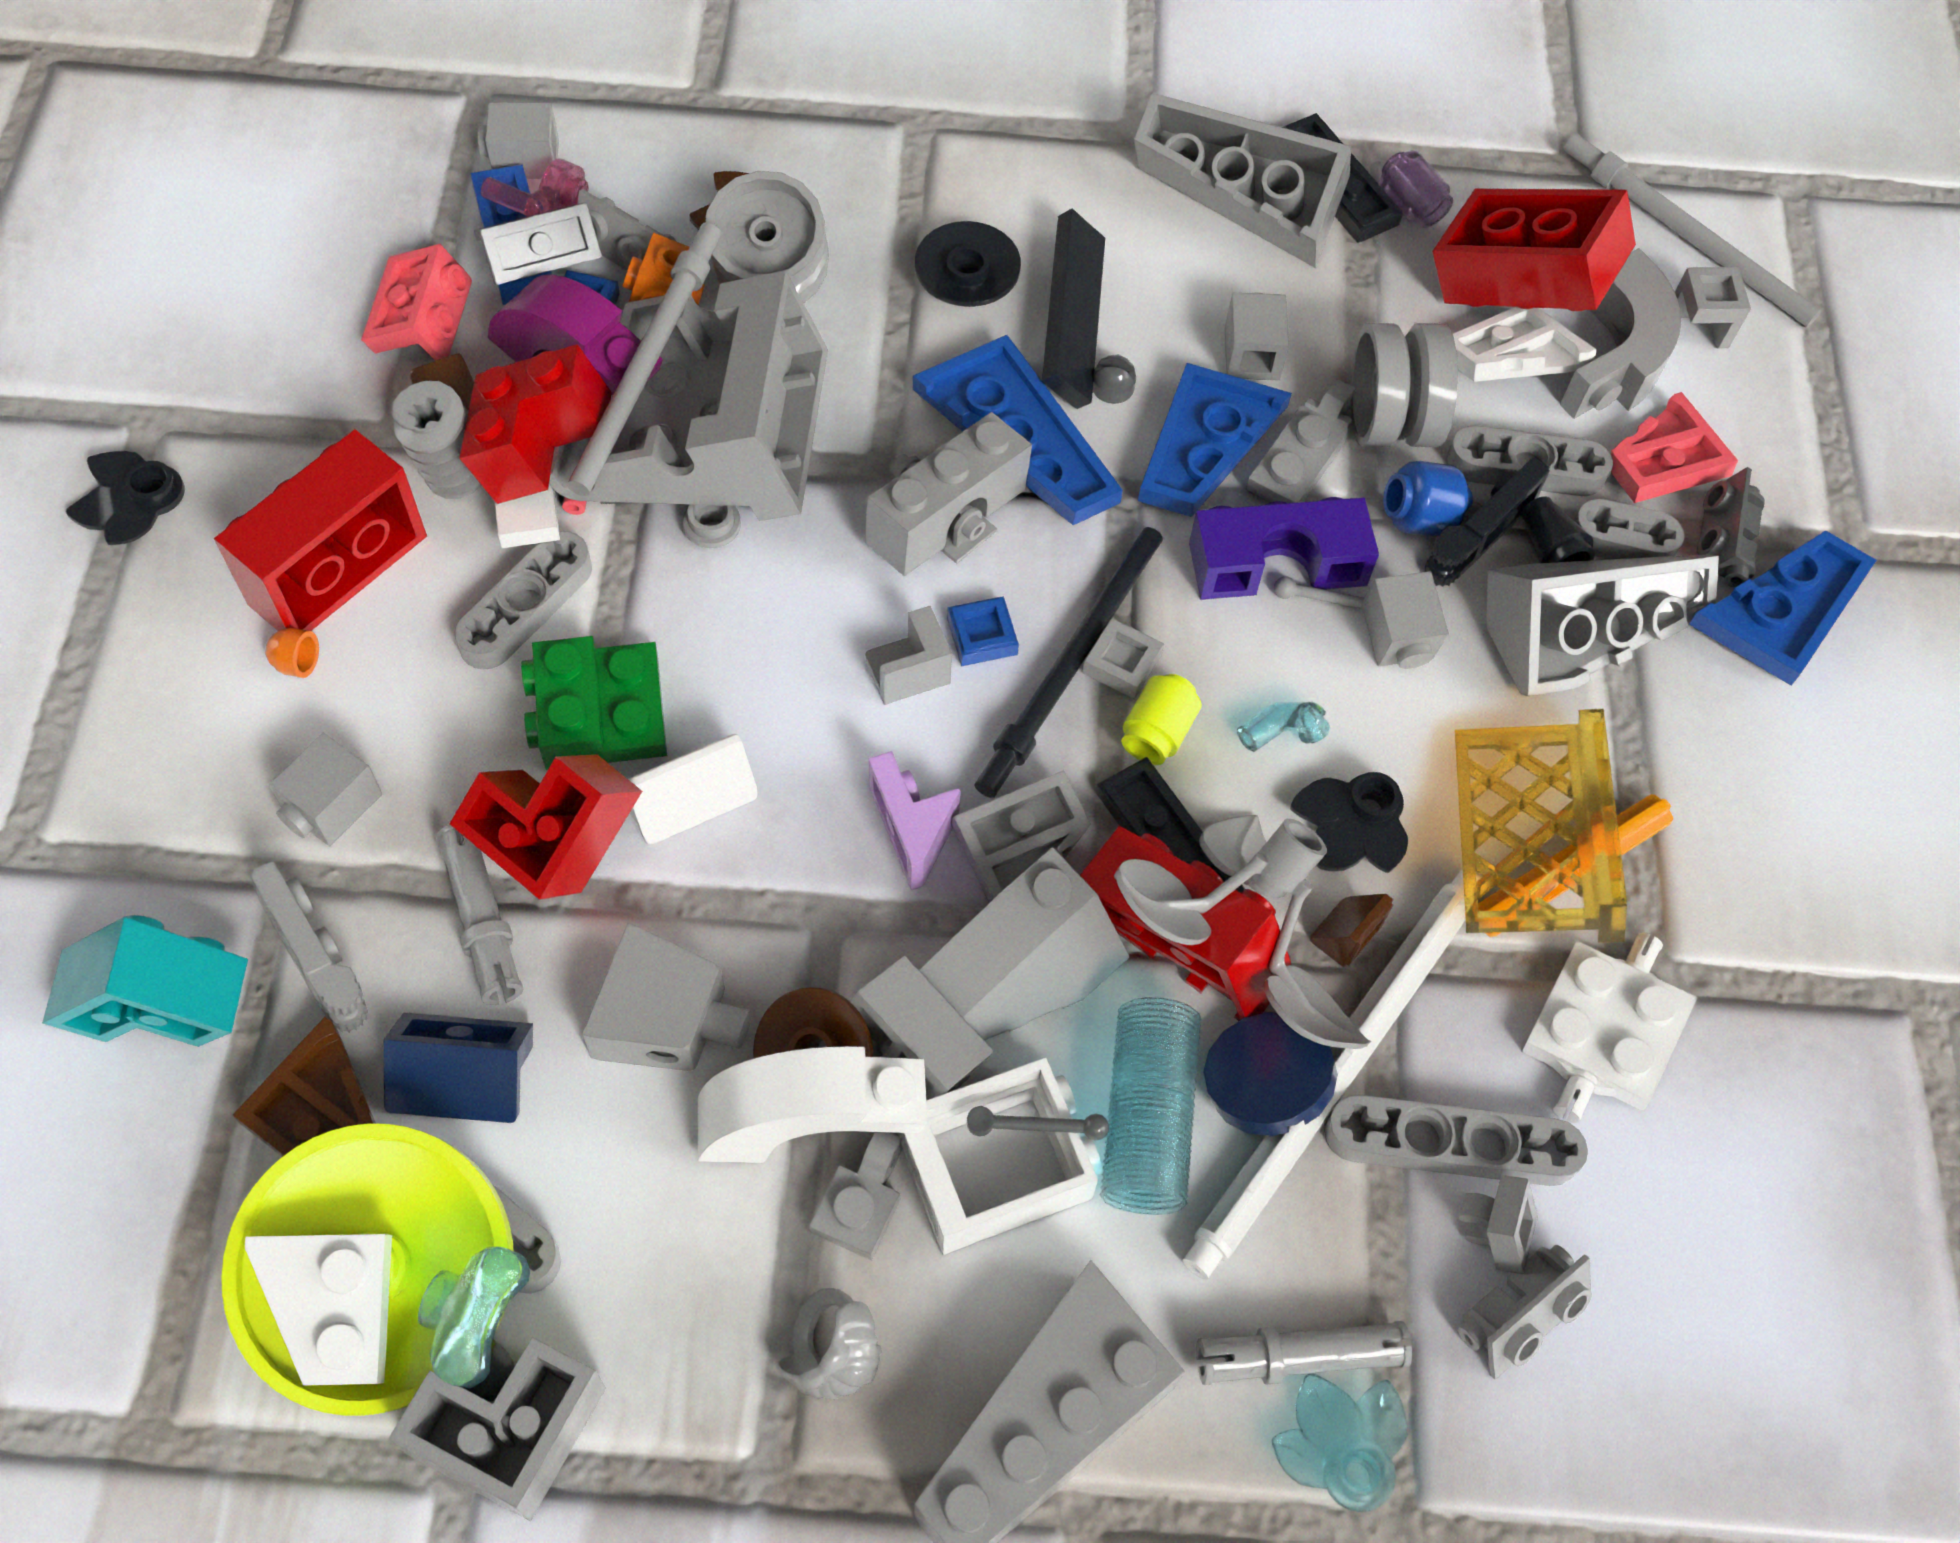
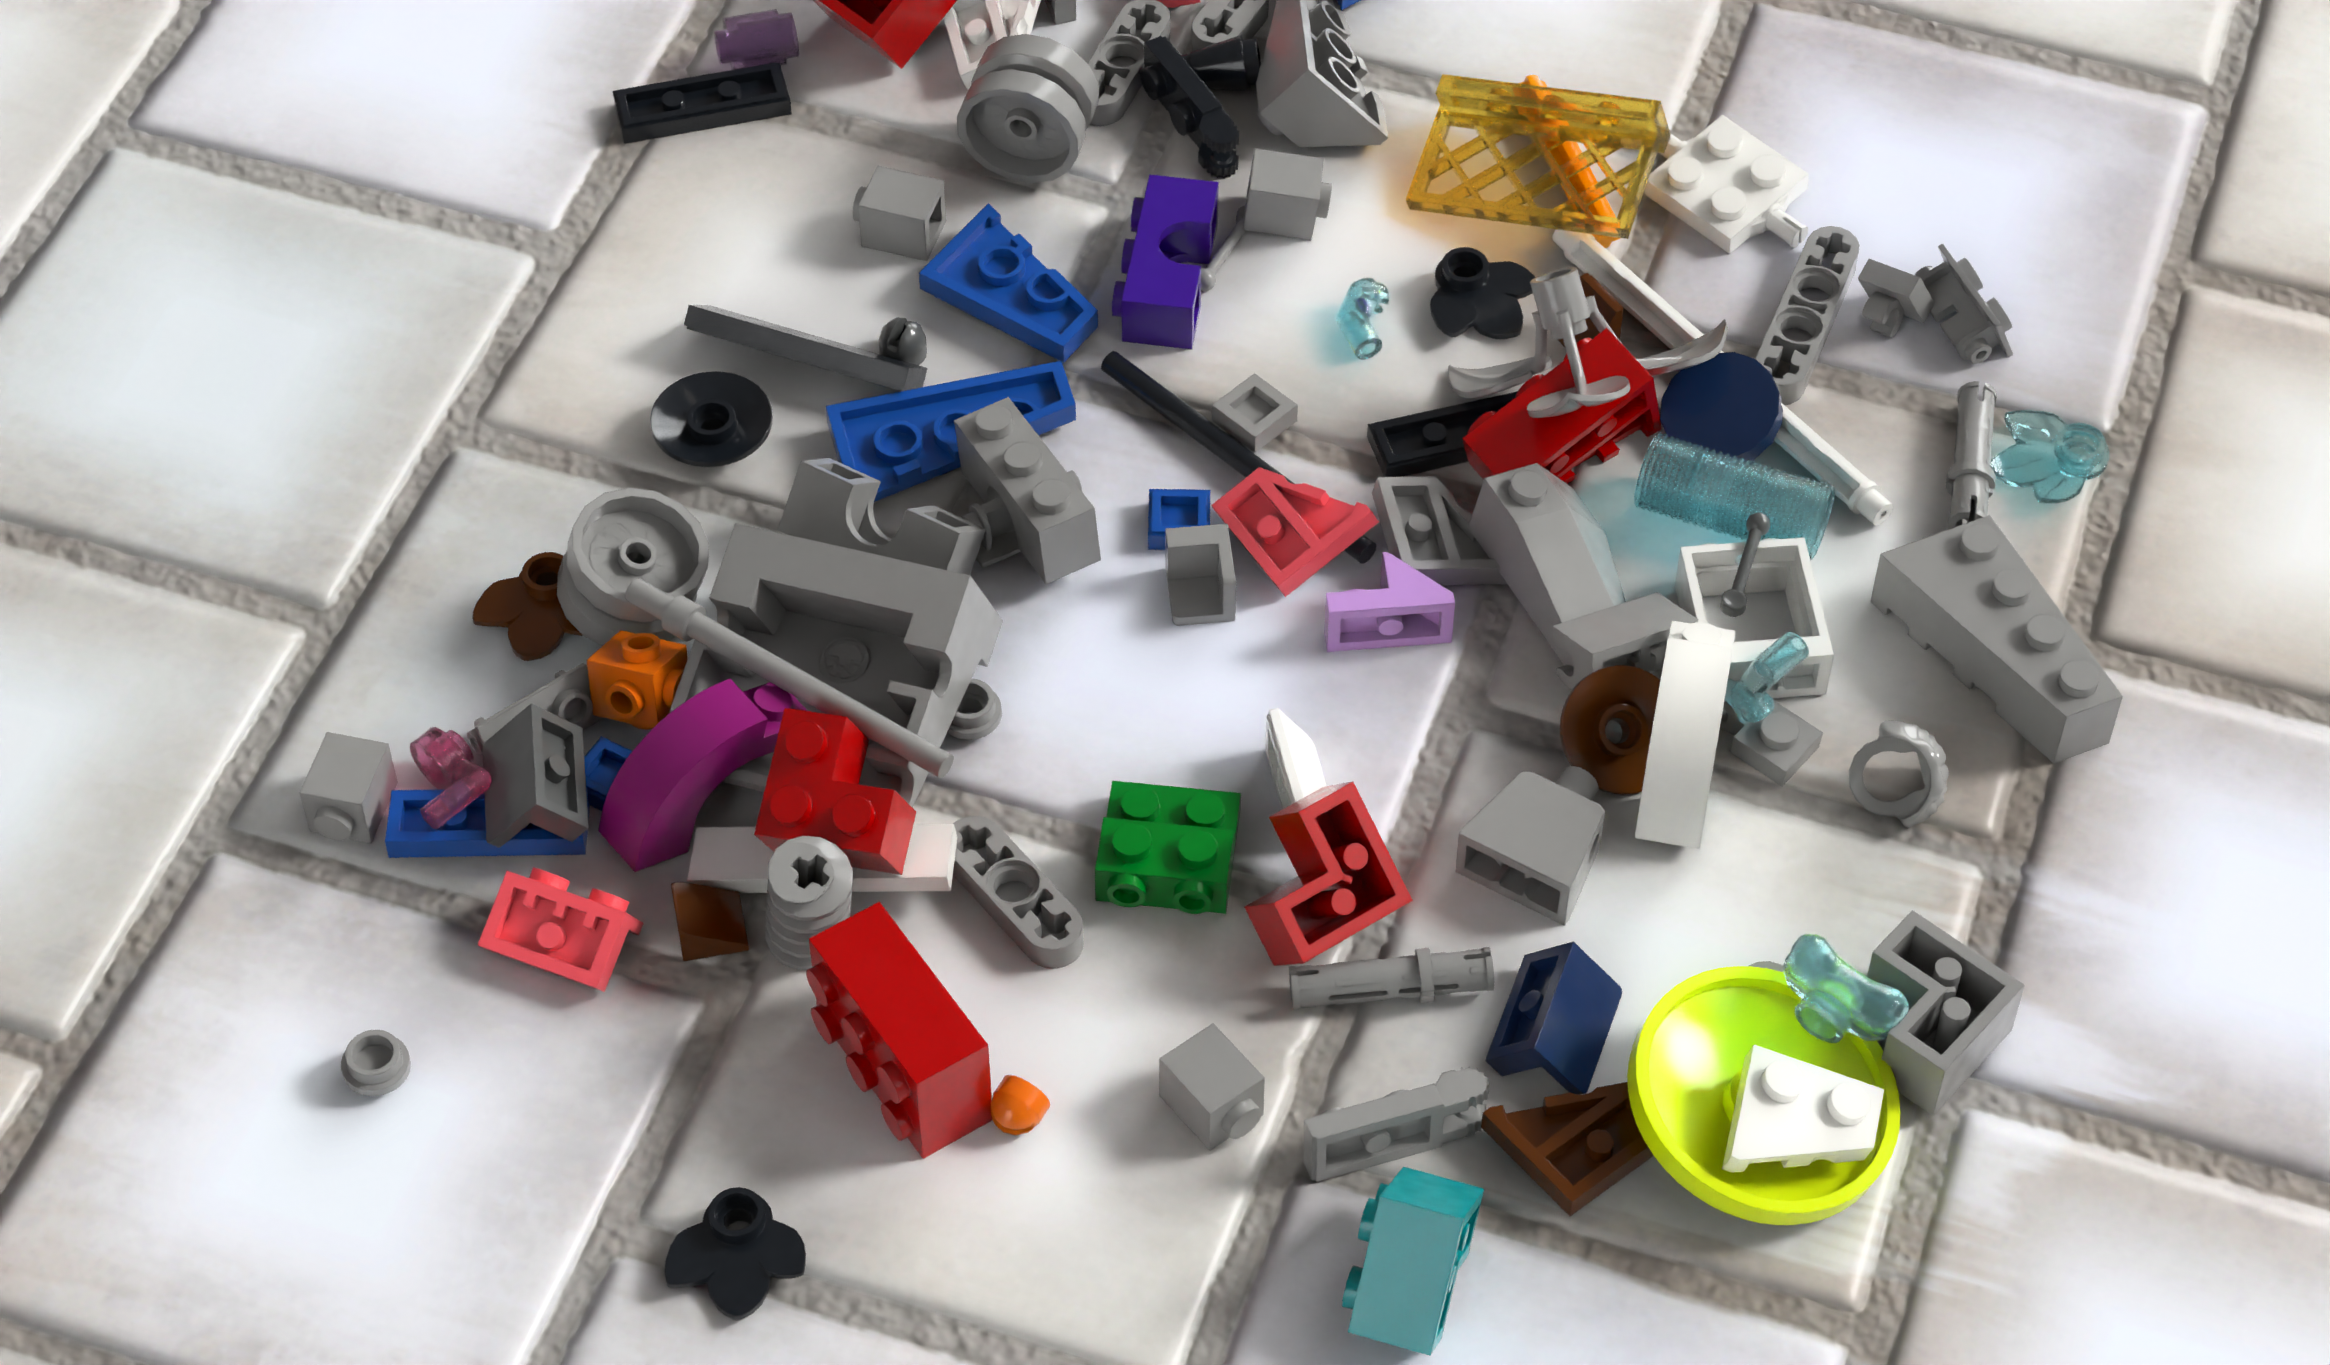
camera: 70 degrees left, 10 degrees down
(273, 228) = (375, 1063): none -> light grey plate
(857, 433) = (836, 508): none -> light grey arch
(879, 1165) = (1764, 672): none -> clear light blue arm
(984, 712) = (1290, 525): none -> coral wing
(1160, 718) = (1334, 399): neon yellow brick -> none
(1247, 171) = (697, 154): light grey wedge -> none
(1304, 448) = (1047, 219): light grey hinge -> none
(1427, 498) = (1151, 139): blue head -> none

